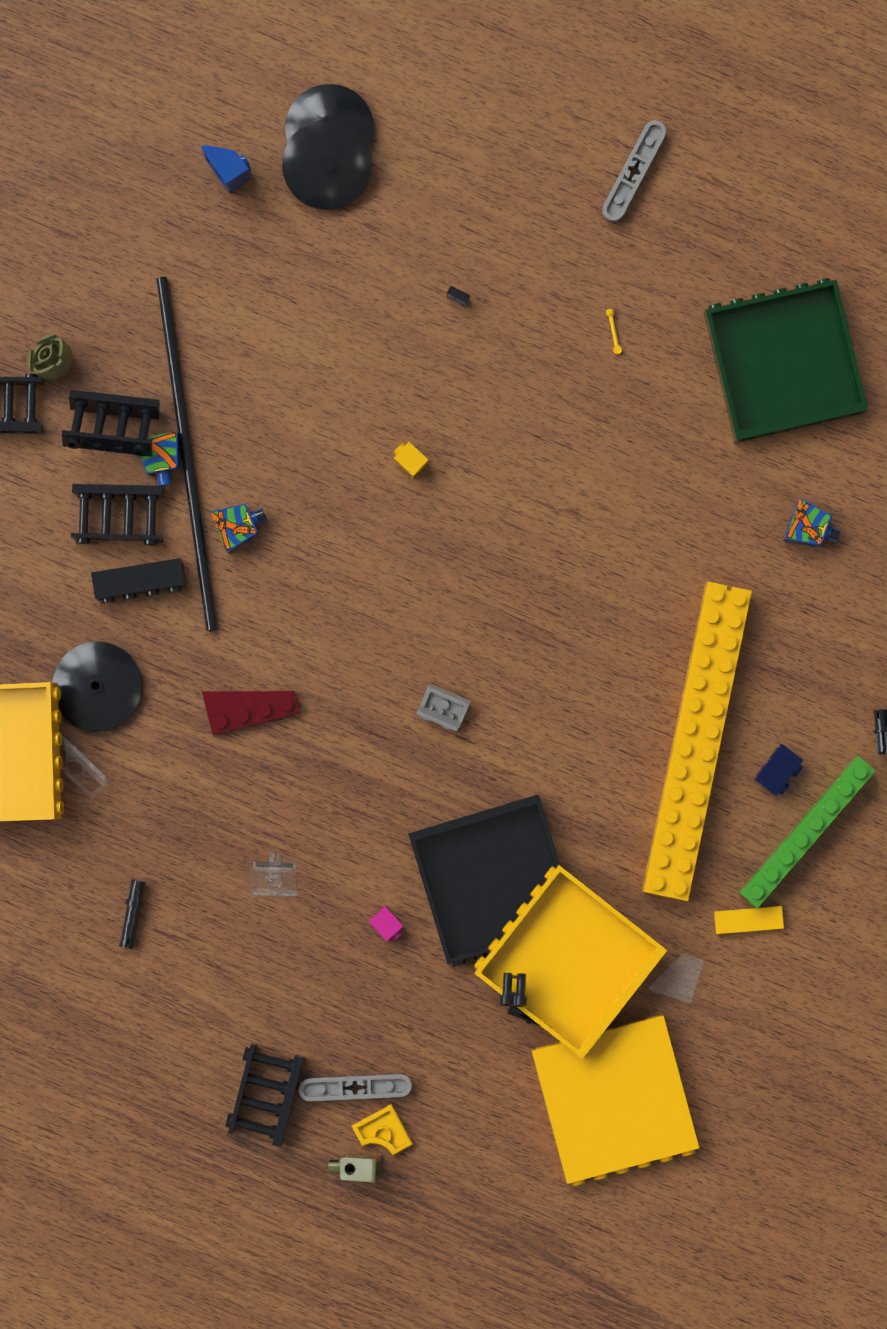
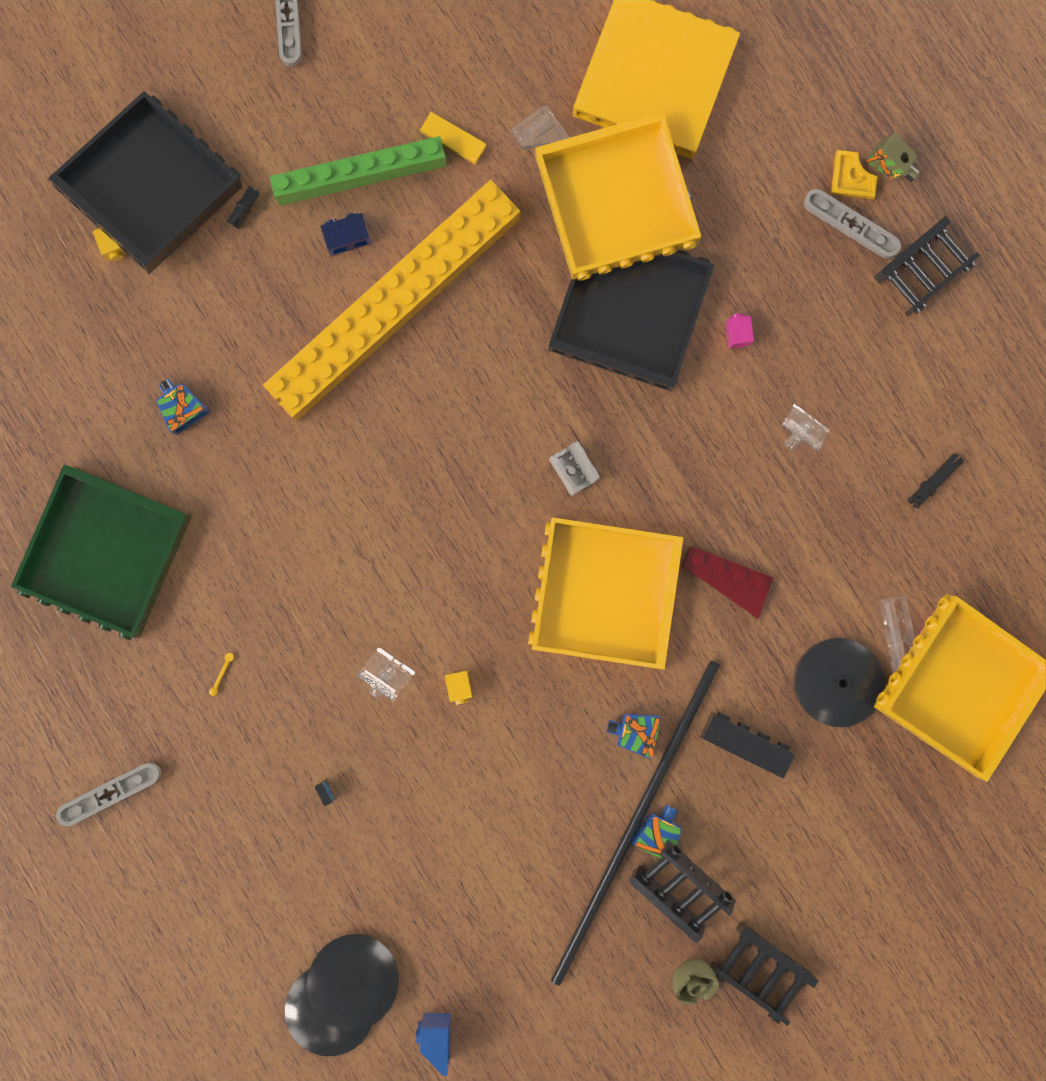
camera: 145 degrees left, 0 degrees up
(107, 494) = (707, 819): black fence -> none
(343, 622) = (606, 593): none -> yellow panel
(477, 426) = (385, 675): none -> clear tile
(511, 998) = (684, 192): black piece -> none

